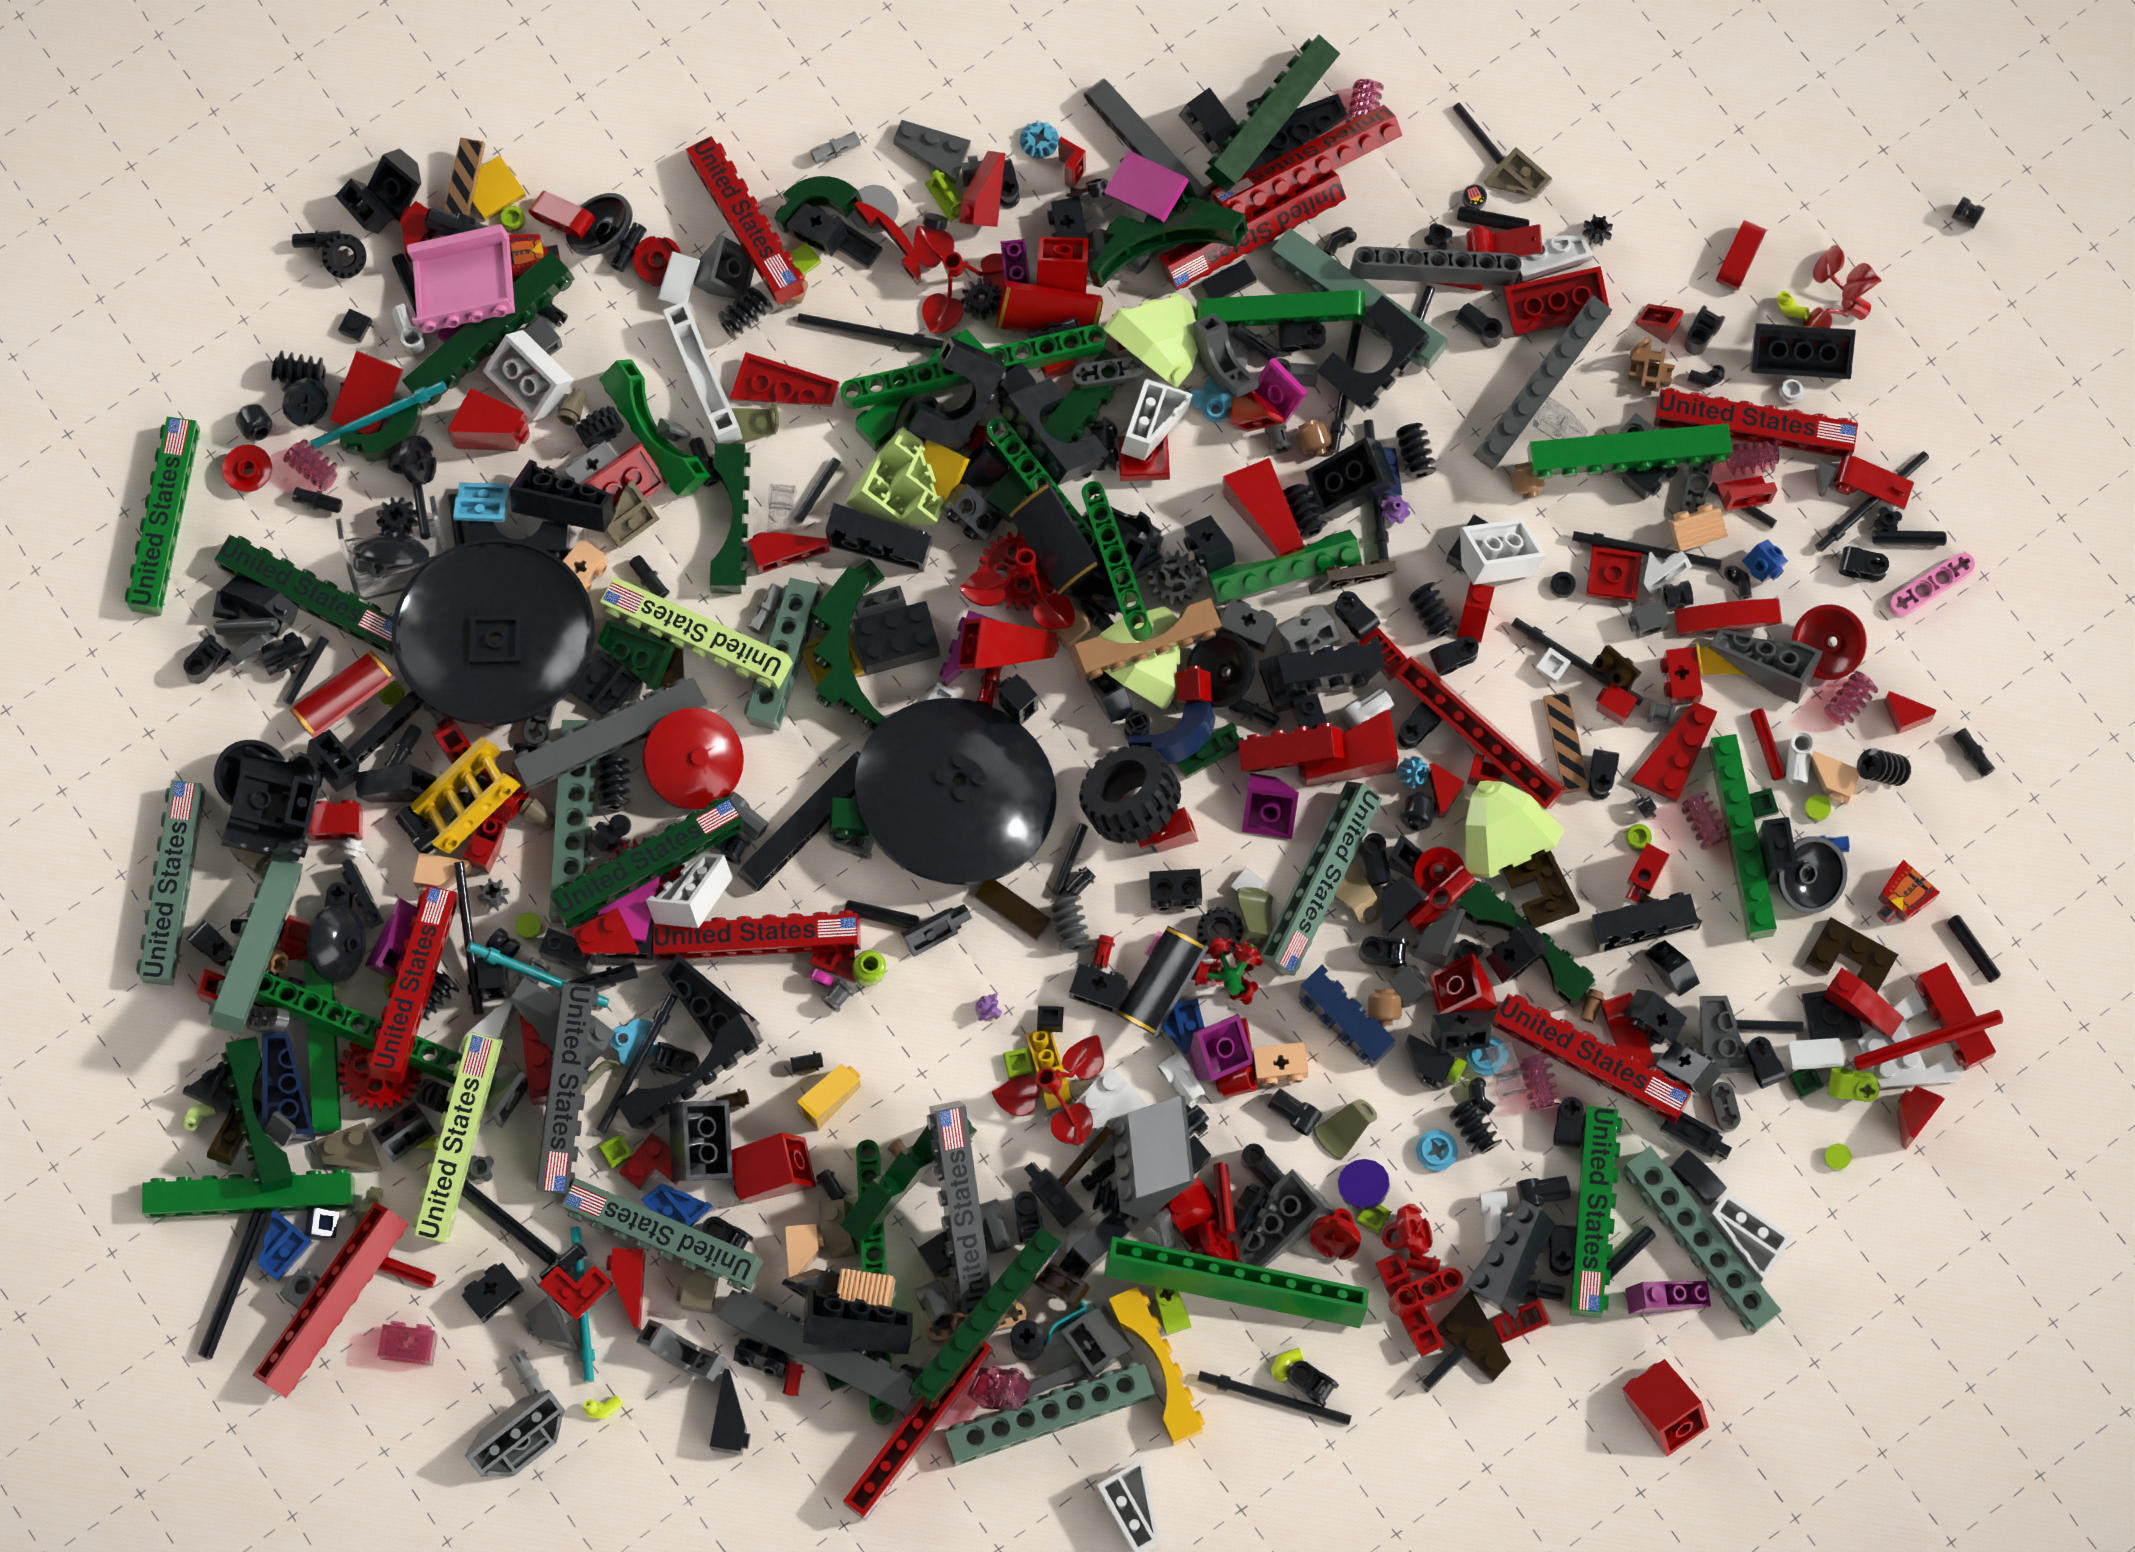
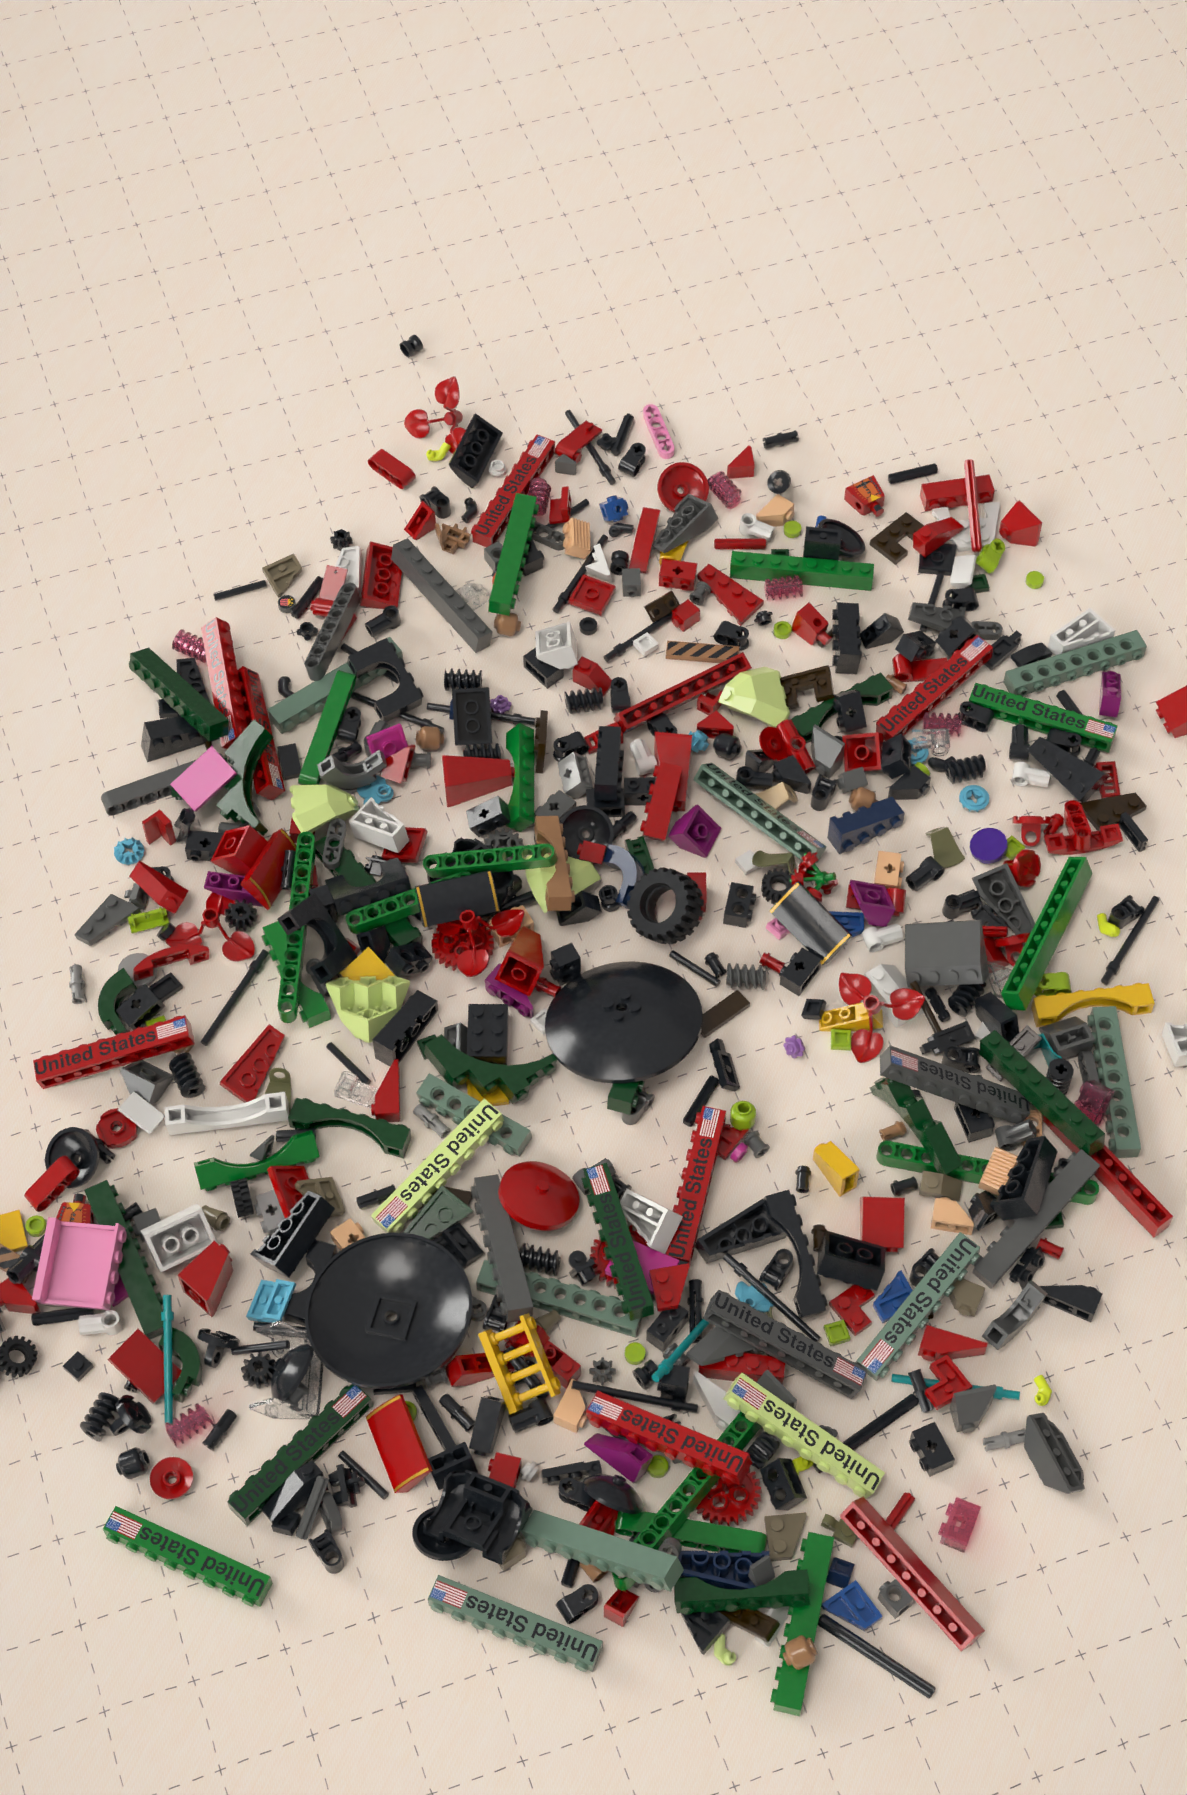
camera: 75 degrees left, 15 degrees down
(200, 1194) = (800, 1652): none -> medium nougat head
(799, 828) = (613, 1133): black beam -> none

